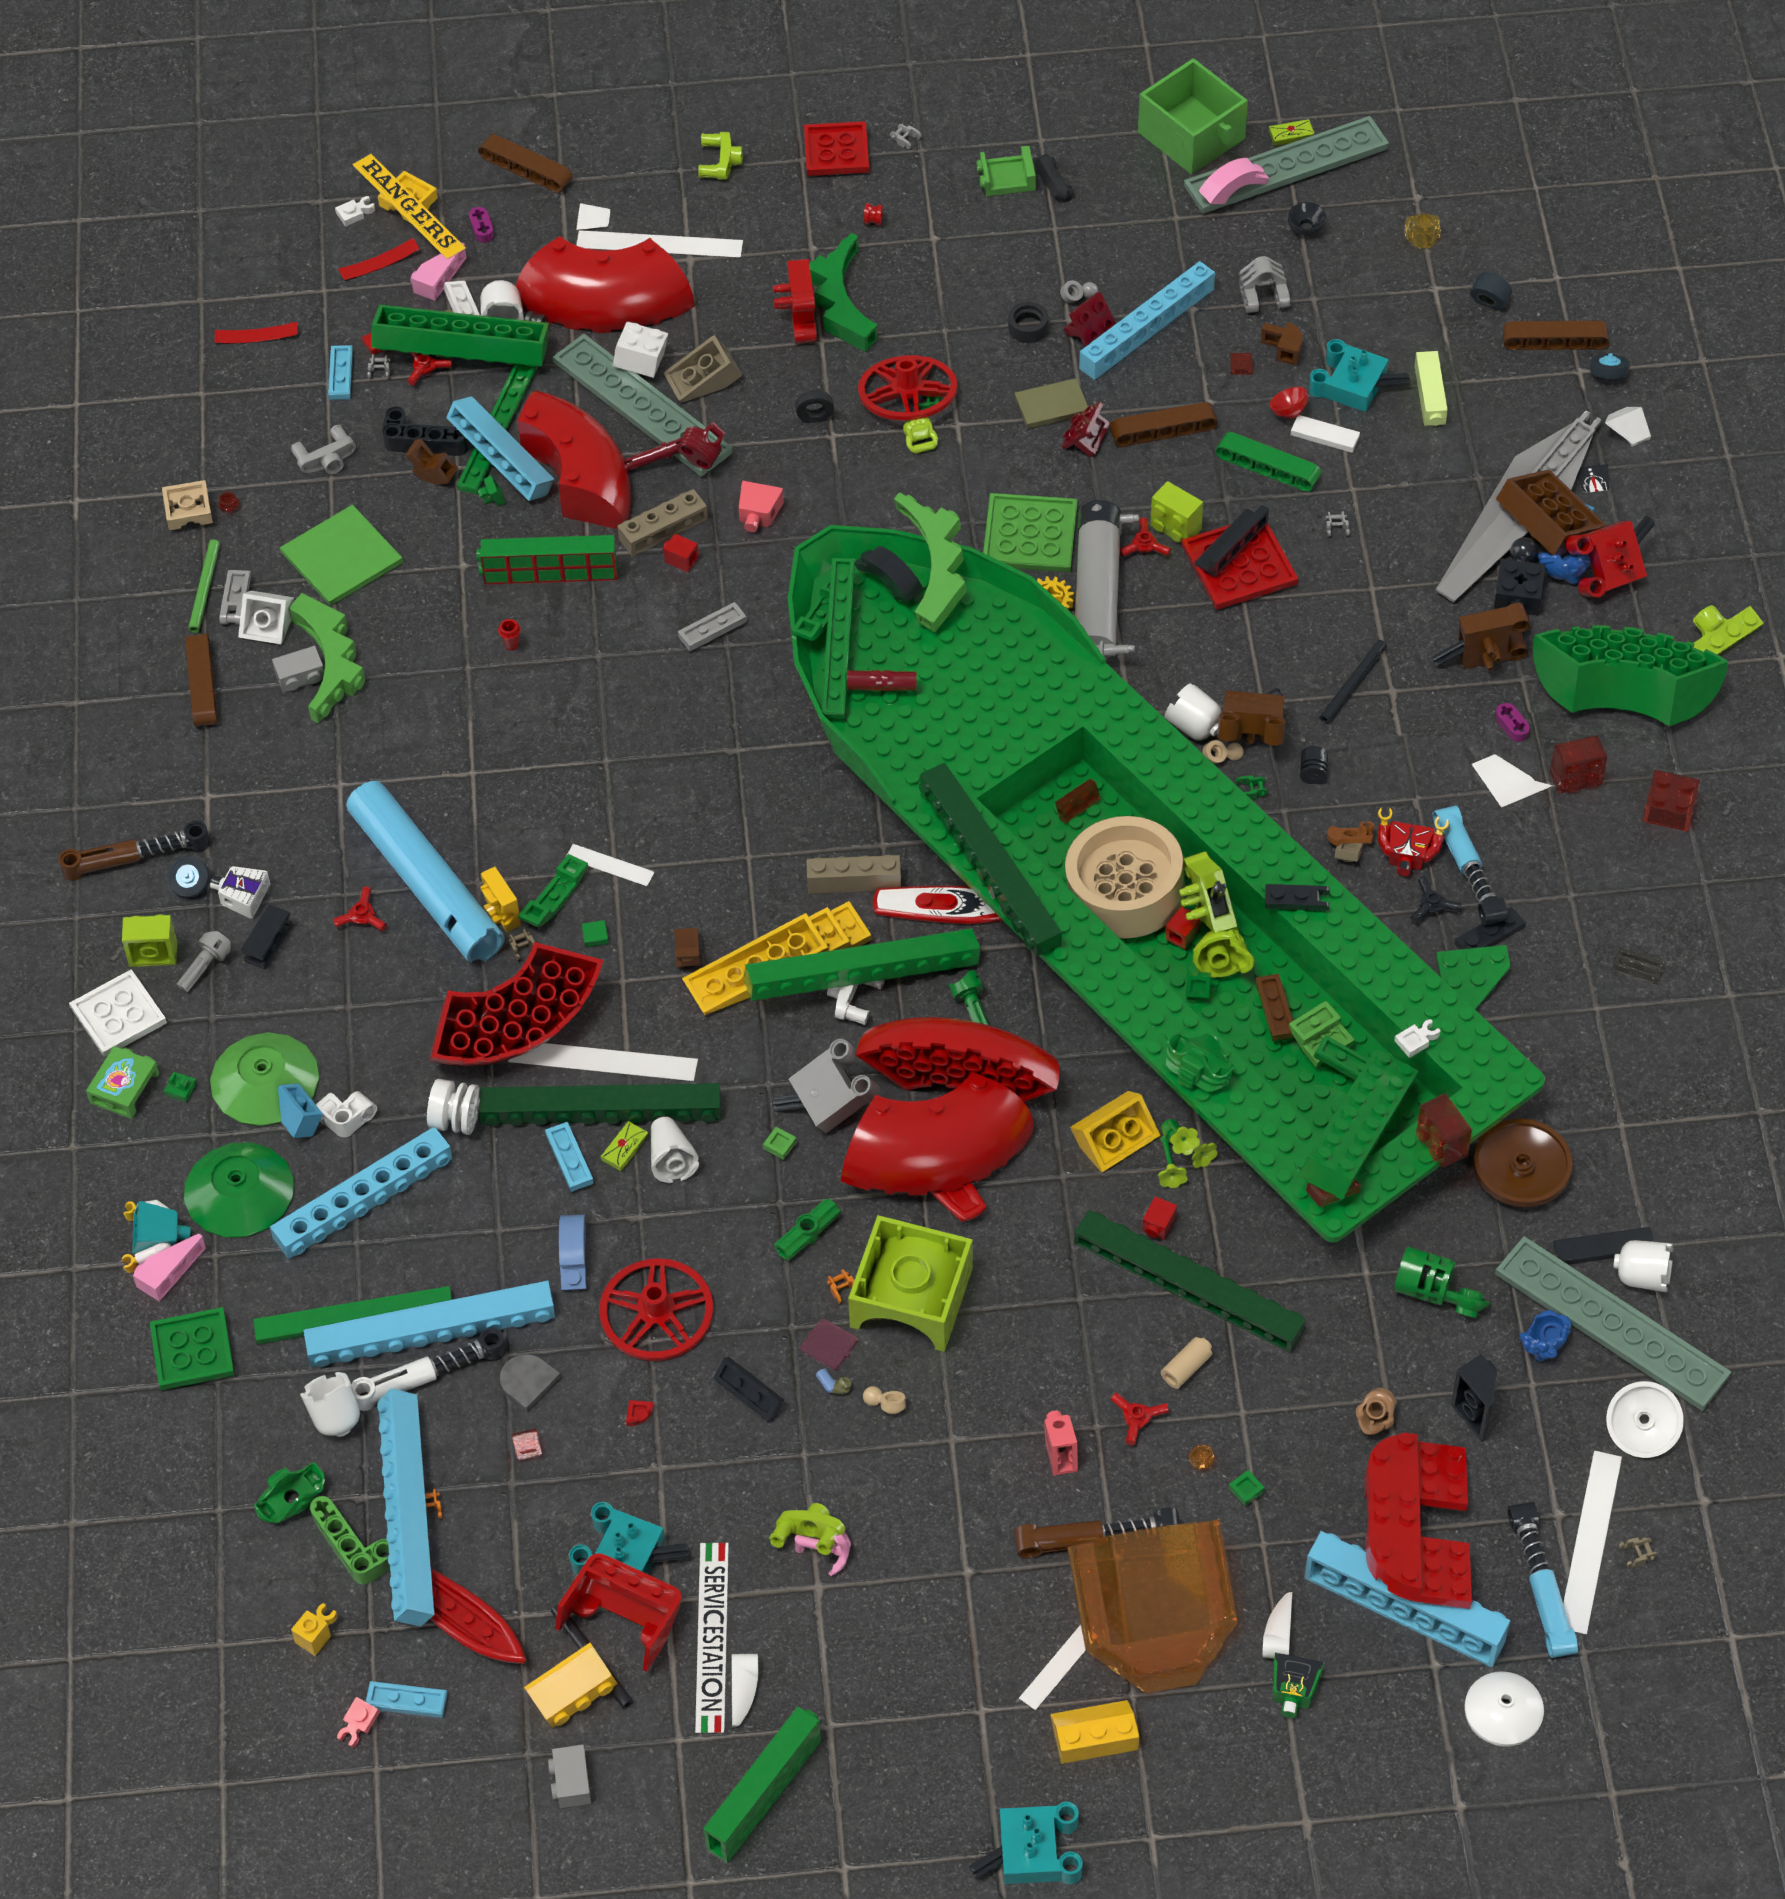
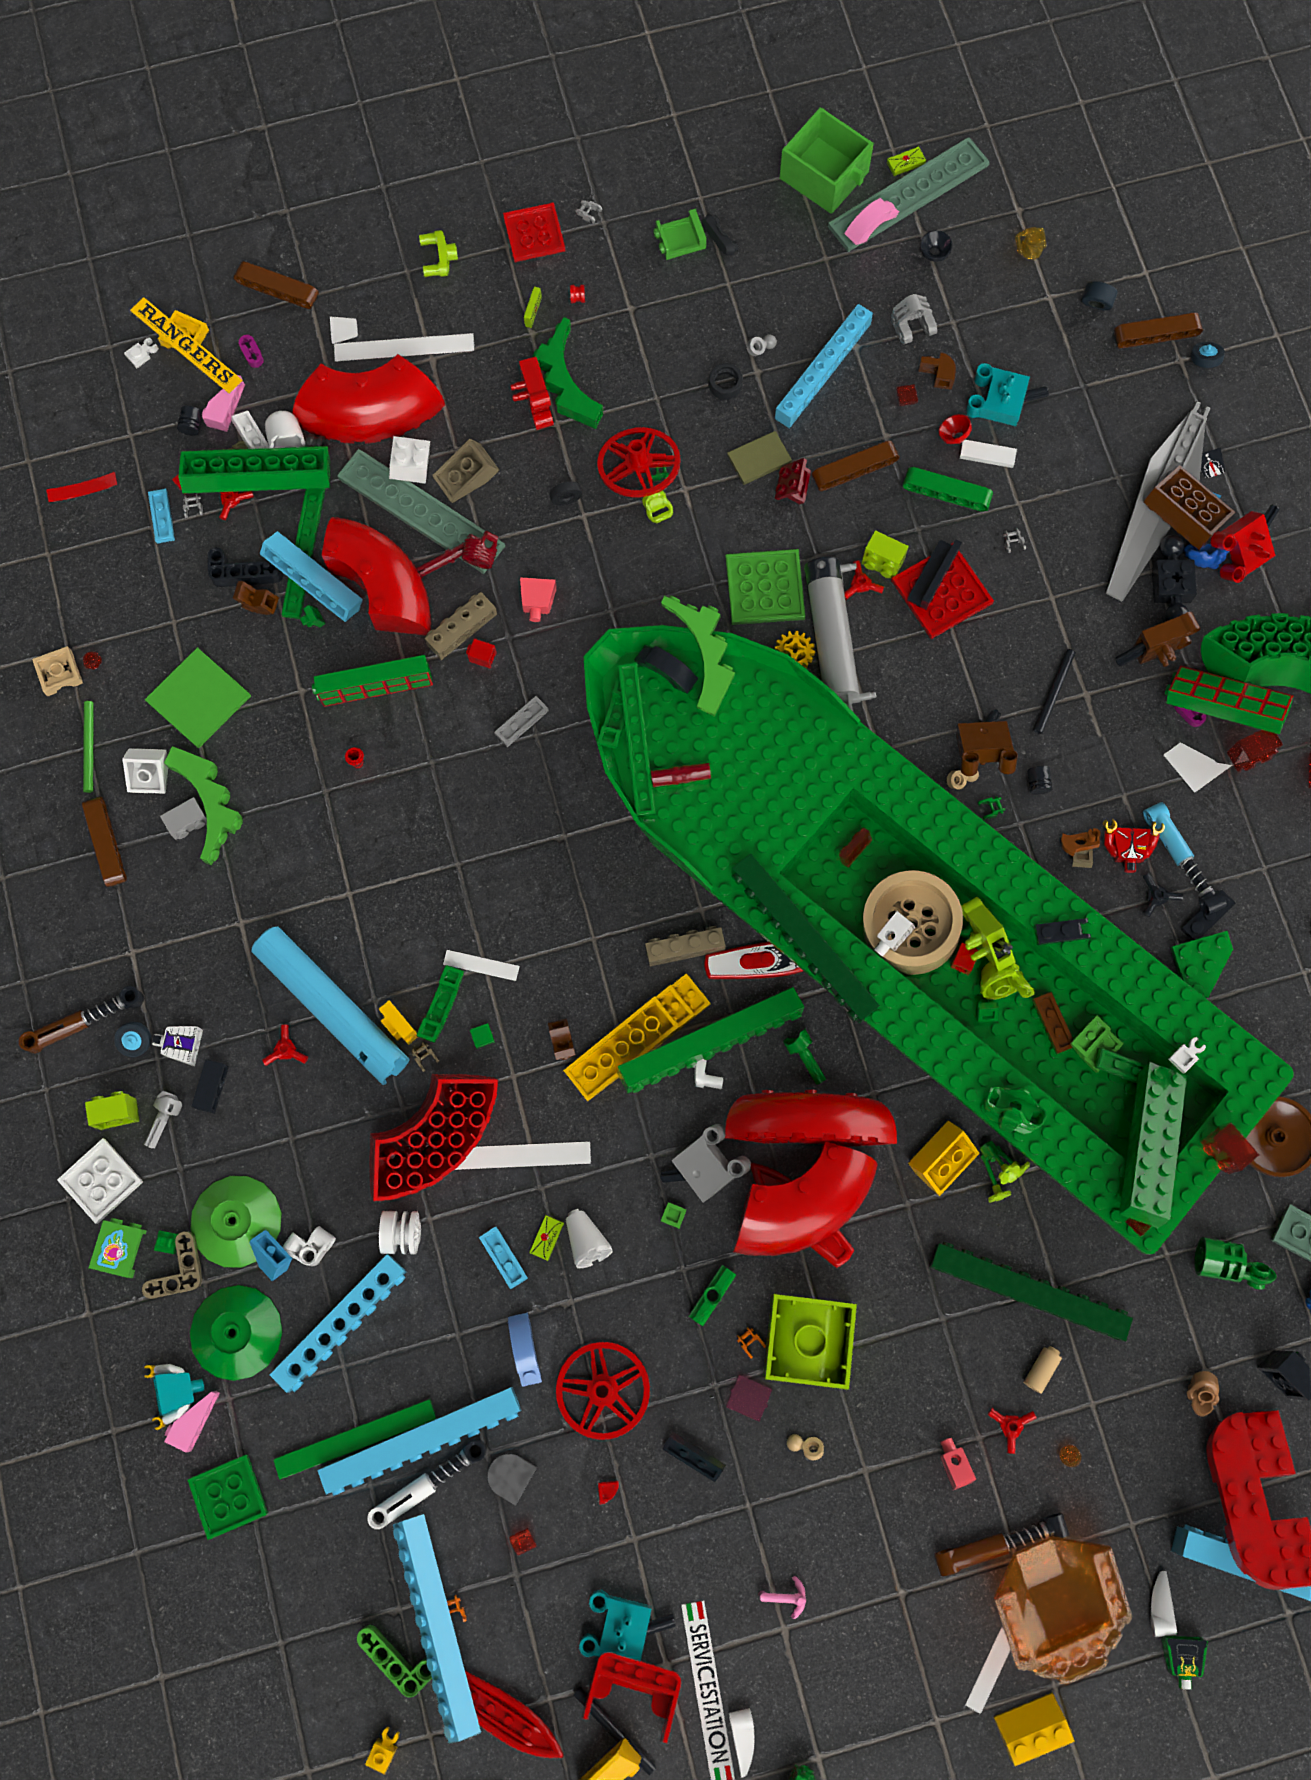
camera: 10 degrees left, 20 degrees up
(194, 1119) = (185, 1271): none -> dark tan beam
(236, 584) = (115, 750): light grey plate -> none
(306, 1482) = (324, 1638): green piece -> none
(327, 457) = (168, 603): light grey connector -> none
(332, 1404) = (354, 1540): white cylinder -> none
(379, 261) = (172, 399): red sticker -> none
(395, 281) = (189, 420): none -> black piece
(599, 1104) = (518, 1203): dark green brick -> none
(812, 1523) = (769, 1577): lime connector -> none
(818, 221) = (532, 307): none -> lime tile
(831, 1385) = (761, 1439): arm -> none
(1090, 319) = (778, 375): dark red bracket -> none
(1097, 867) = (896, 925): none -> white torso
(1159, 1218) = (995, 1237): red brick -> none
(1194, 713) = (936, 748): white cylinder -> none
(1246, 1488) = (1112, 1479): green plate -> none
(1430, 388) = (1067, 398): yellowish green brick -> none
(1555, 706) = (1229, 699): none -> green brick
(1630, 424) = (1232, 407): white slope -> none

